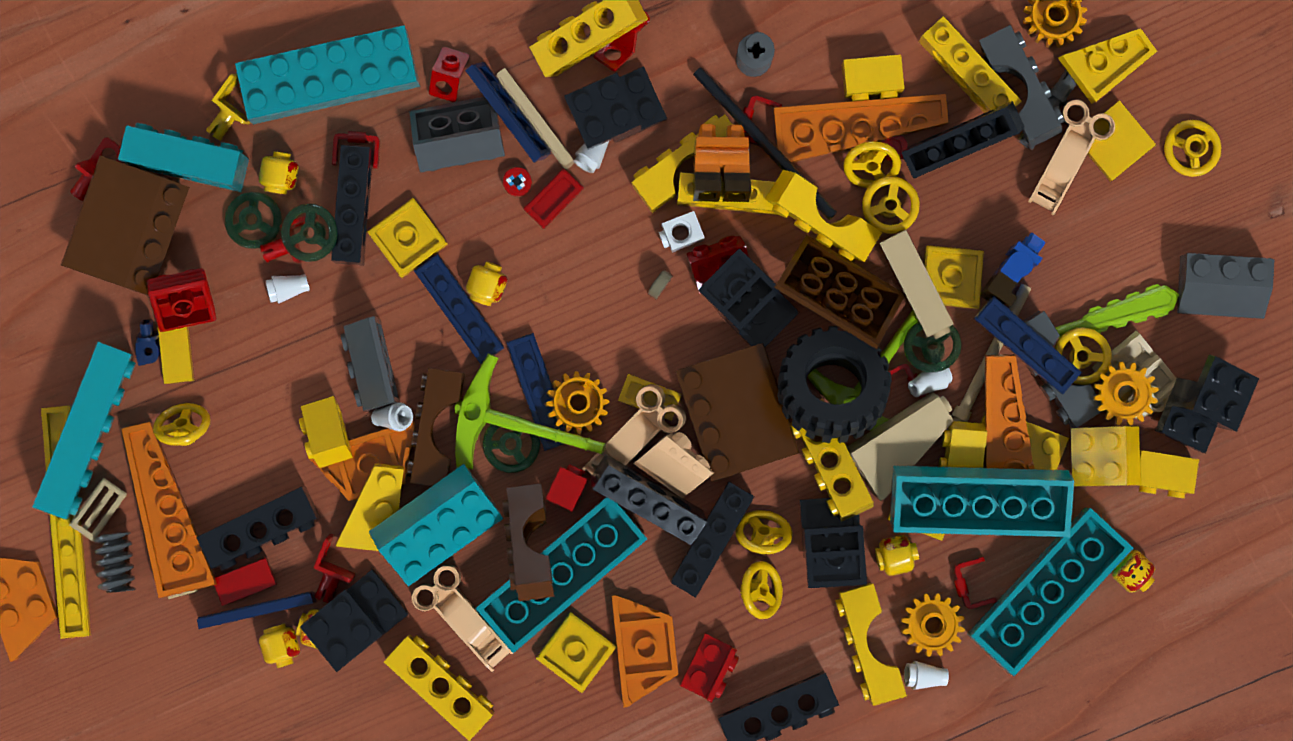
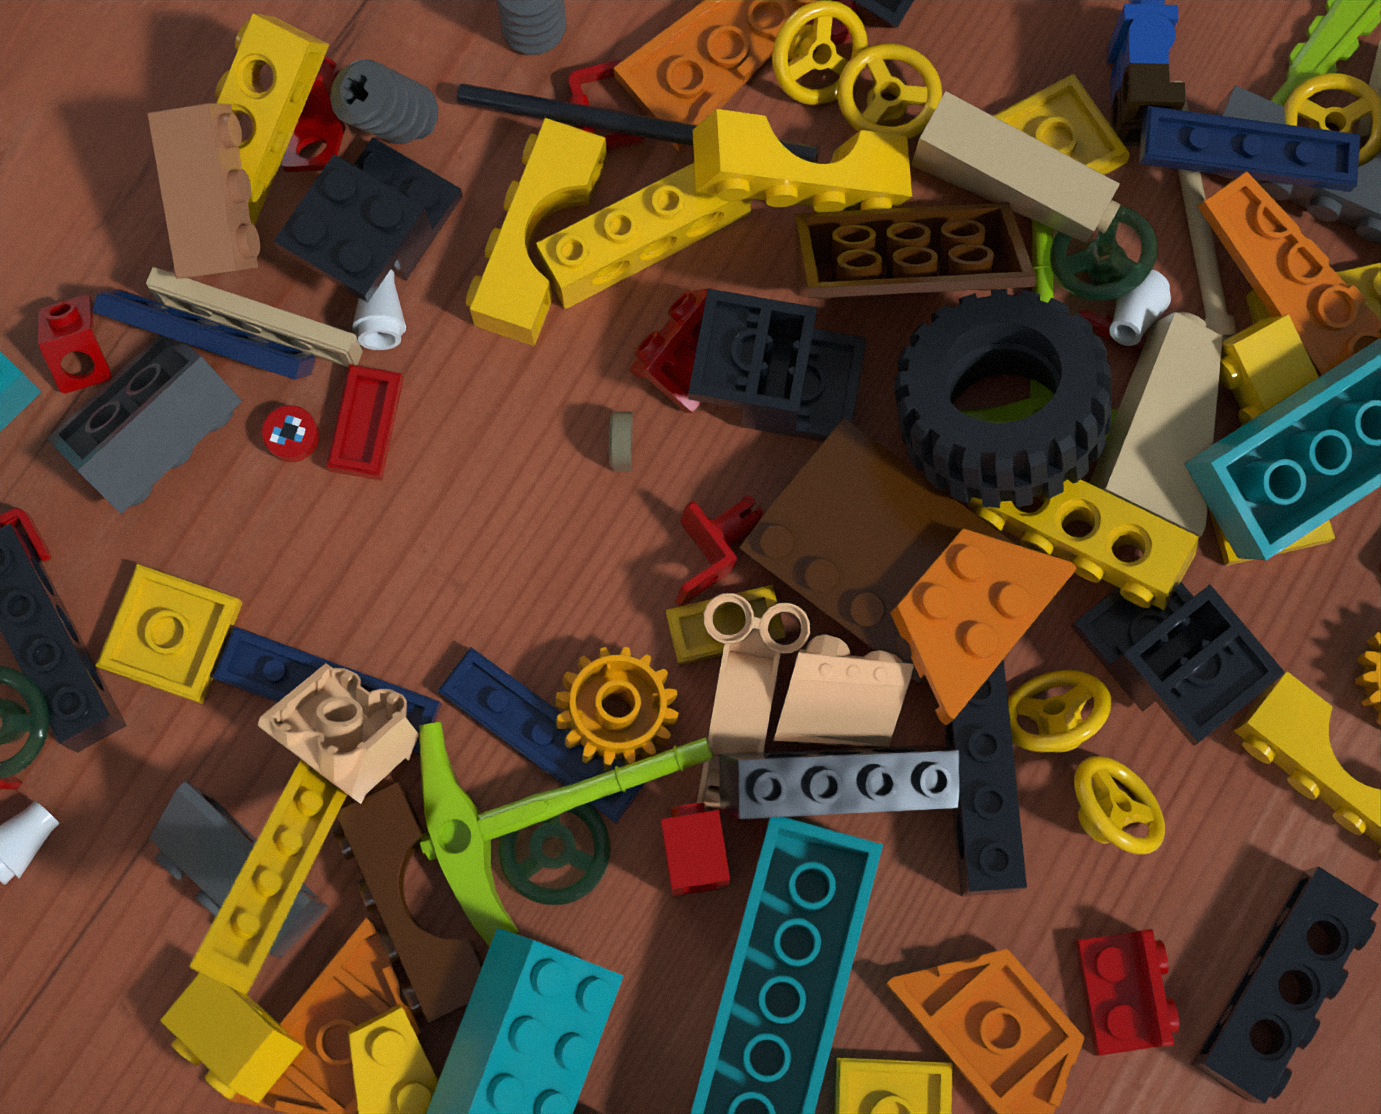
camera: 35 degrees left, 10 degrees down
(394, 416) = (331, 930): white cone -> none
(397, 375) = (269, 880): none -> yellow plate
(454, 334) = (343, 729): none -> light nougat slope
(486, 283) = (344, 617): yellow head -> none
(531, 570) = (731, 1021): reddish brown arch -> none
(548, 52) = (204, 189): none -> nougat brick
(657, 57) = (383, 102): none -> dark grey piece
(672, 357) = (714, 541): none -> red bracket
(687, 220) = (600, 316): white brick -> none
(722, 155) = (593, 184): hips -> none
(754, 468) = (973, 612): none -> orange wing
(896, 555) = (1284, 607): yellow head -> none

